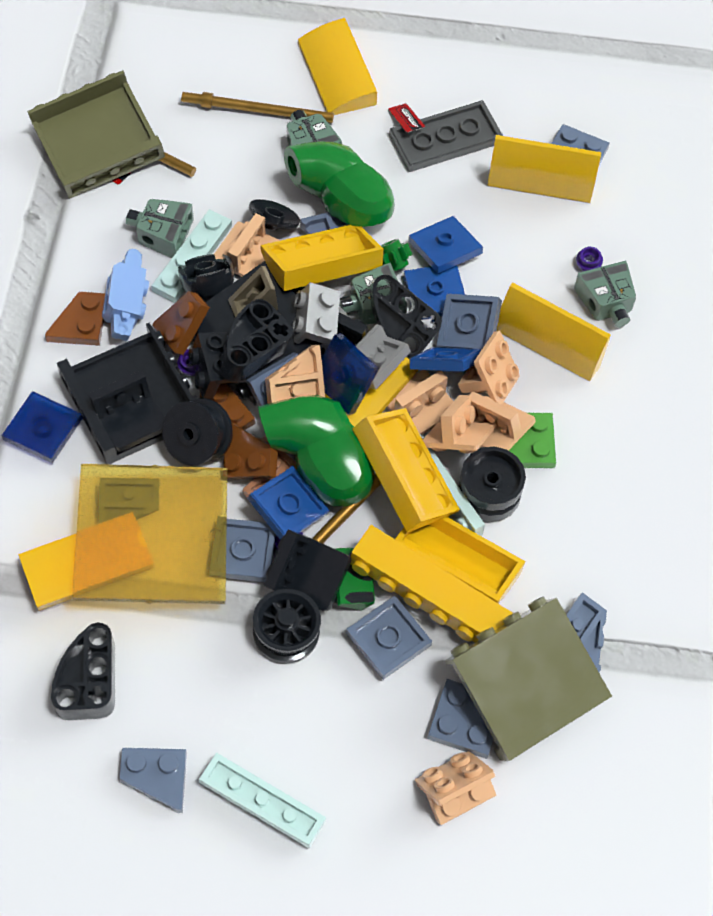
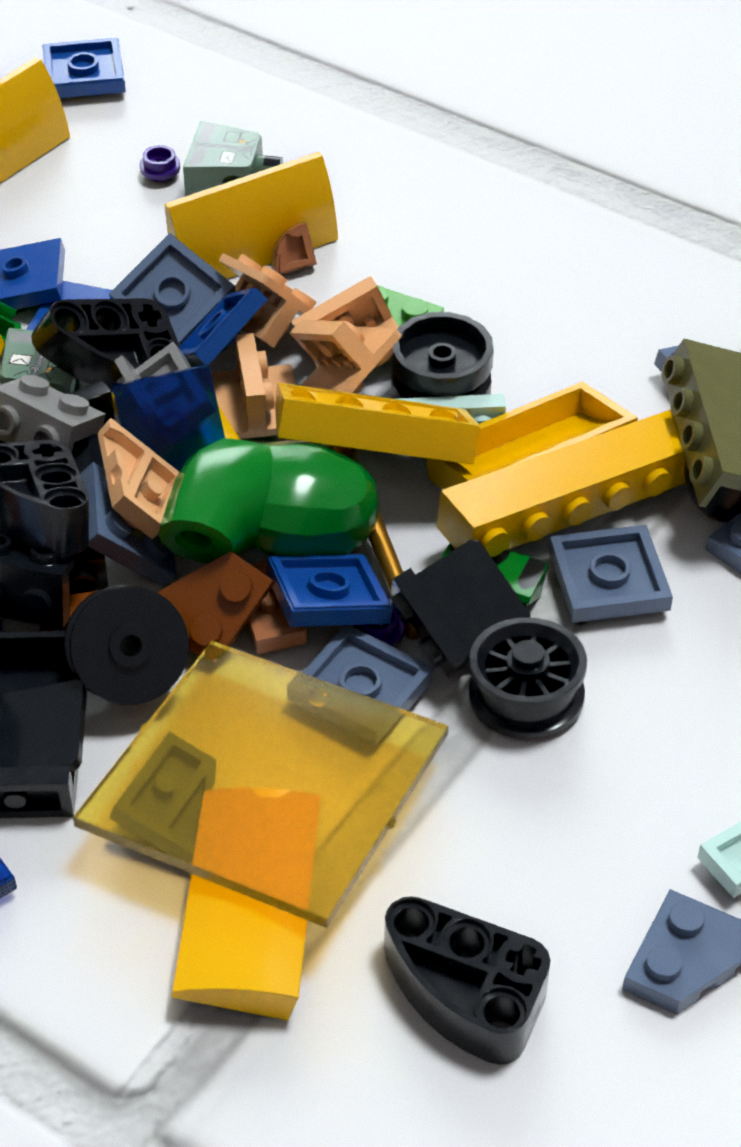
camera: 60 degrees left, 15 degrees down
(554, 364) = (293, 250): none -> nougat tile
(650, 176) = (85, 67): none -> blue plate

